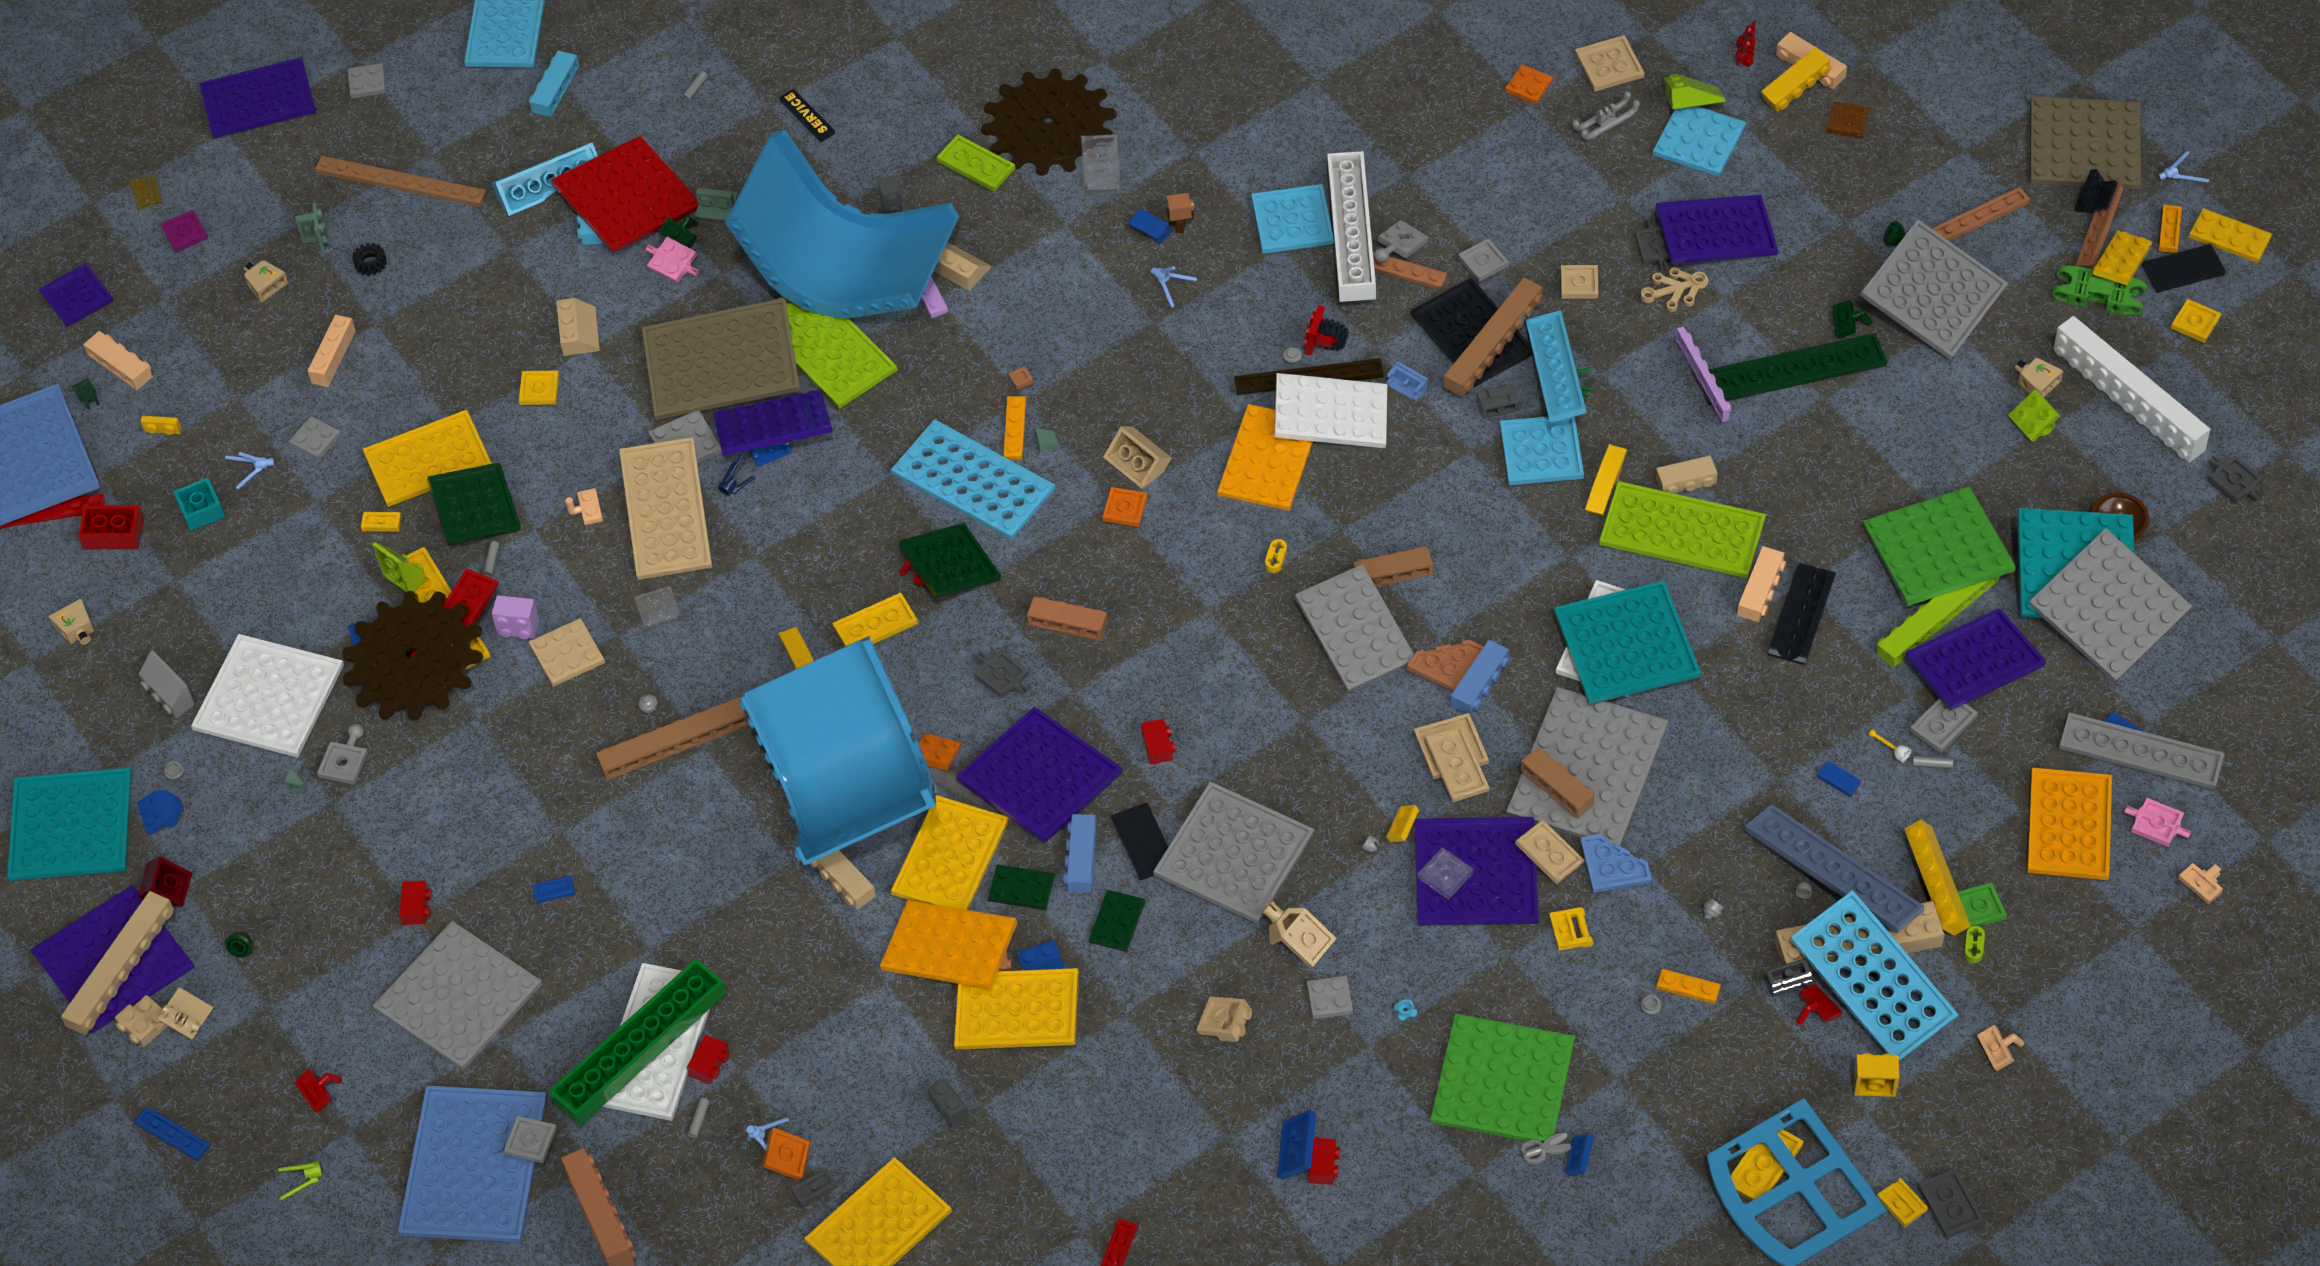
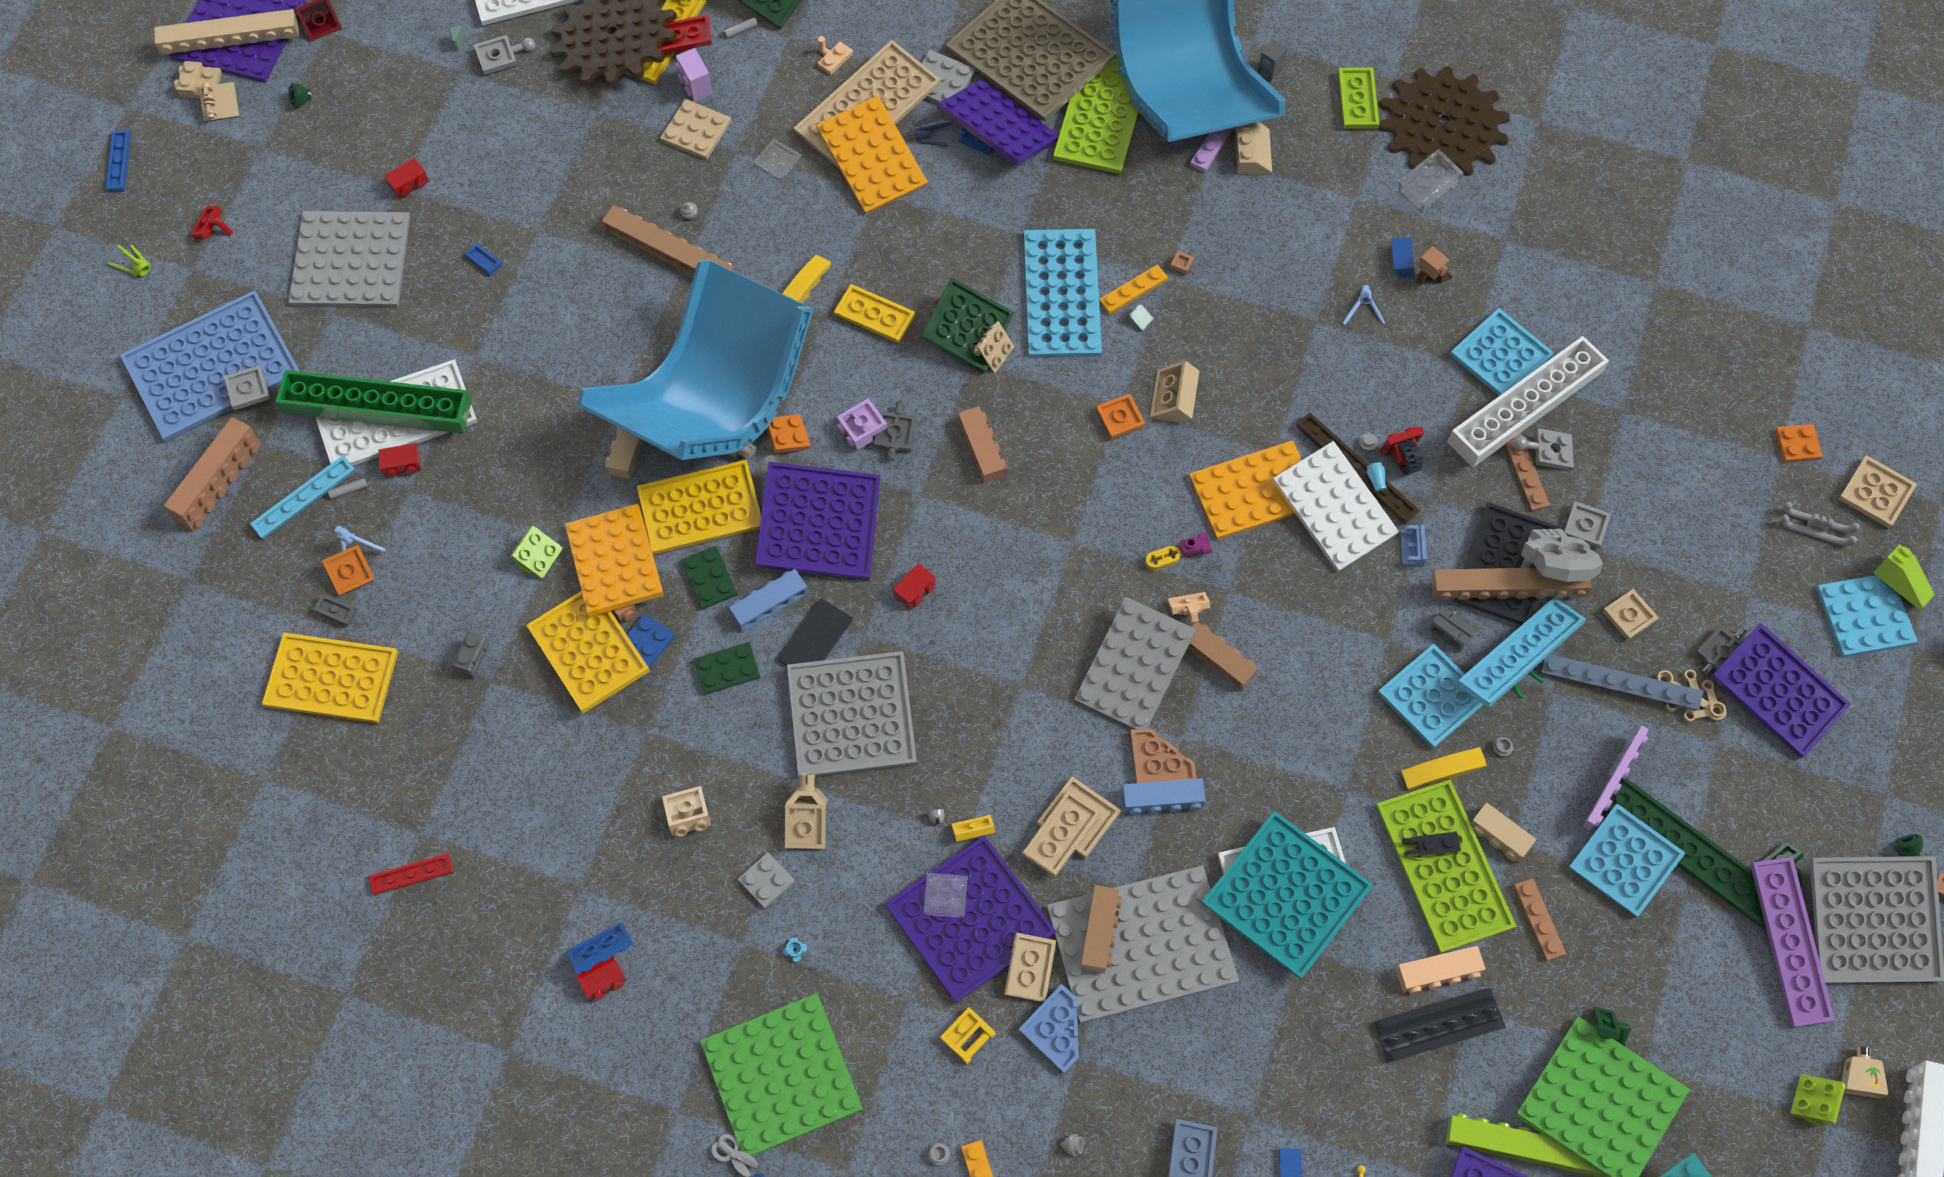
camera: 50 degrees right, 10 degrees up
(681, 1154) = (303, 497): none -> medium azure plate
(719, 533) = (871, 154): none -> light orange plate
(892, 1001) = (536, 552): none -> lime plate
(975, 691) = (861, 424): none -> lavender plate
(984, 553) = (994, 346): none -> tan hinge
(1285, 524) = (1199, 544): none -> magenta plate
(1330, 365) = (1376, 474): none -> medium azure cone
(1332, 560) = (1189, 605): none -> light nougat hinge
(1501, 287) = (1560, 556): none -> light grey brick
(1618, 432) = (1503, 746): none -> light grey plate
(1629, 321) = (1622, 682): none -> sand blue plate
(1662, 524) = (1433, 845): none -> black hinge
(1770, 411) = (1627, 860): none -> medium azure plate
(1771, 498) = (1539, 920): none -> nougat plate
(1884, 504) = (1609, 1027): none -> dark green plate
(1910, 351) = (1792, 942): none -> medium lavender plate

